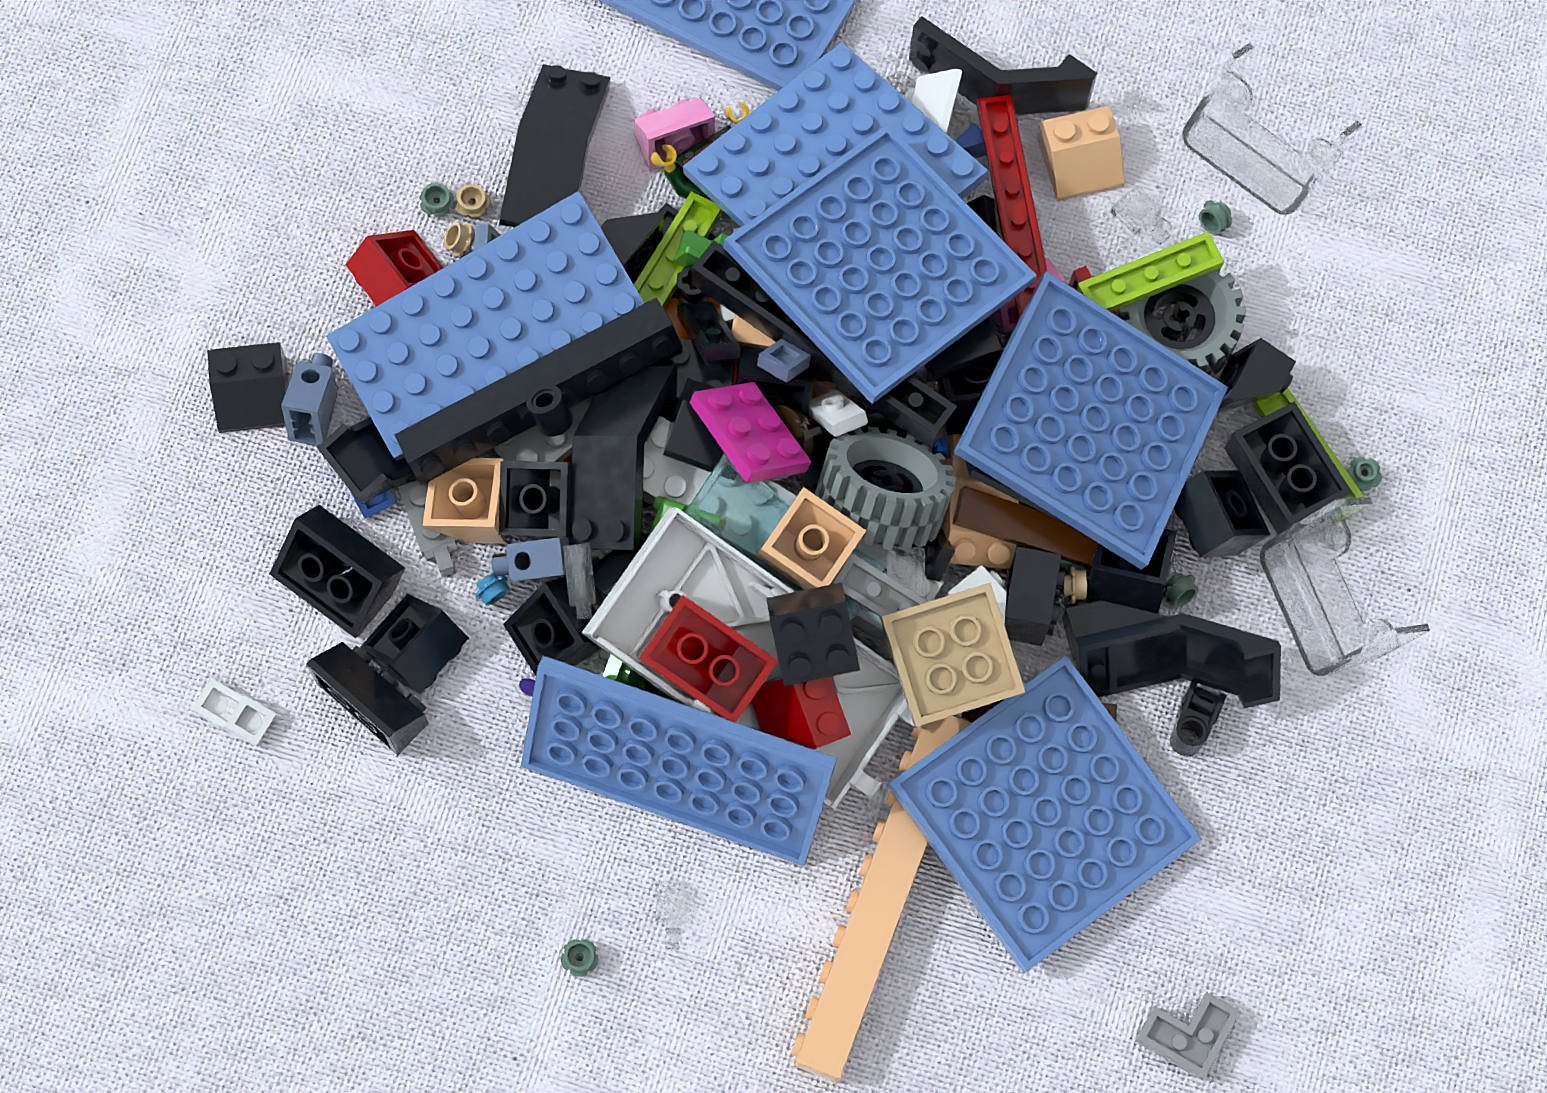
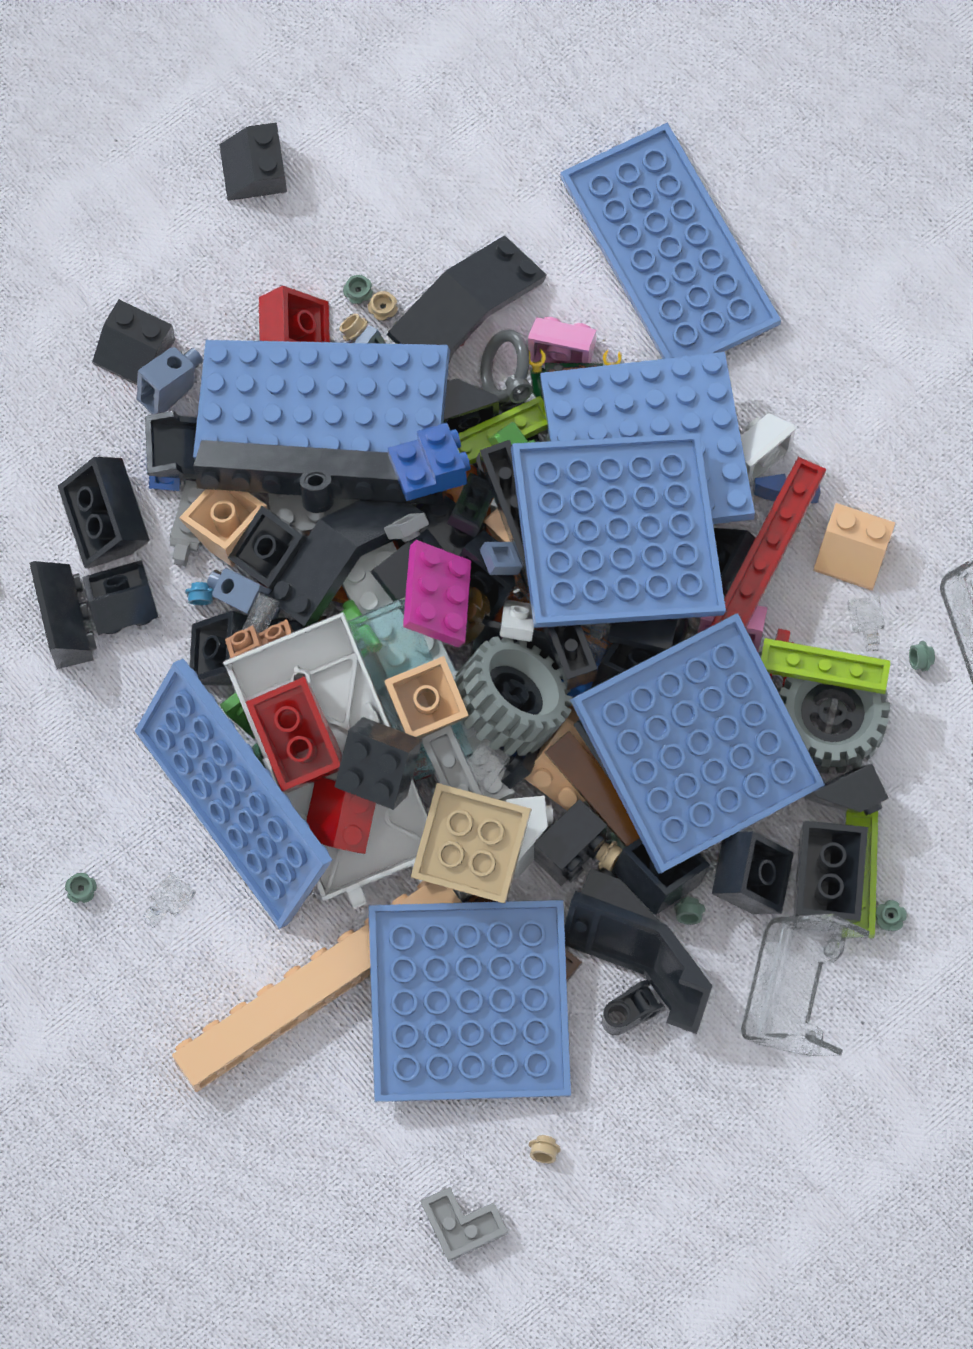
camera: 40 degrees right, 0 degrees up
(246, 139) = (253, 163): none -> black slope
(589, 598) = (249, 638): none -> nougat slope
(648, 311) = (430, 462): none -> plate
(665, 193) = (517, 385): none -> dark grey piece
(670, 387) = (406, 527): none -> light grey plate
(1032, 89) = (865, 485): black windscreen -> none
(1213, 908) = (544, 1149): none -> tan plate

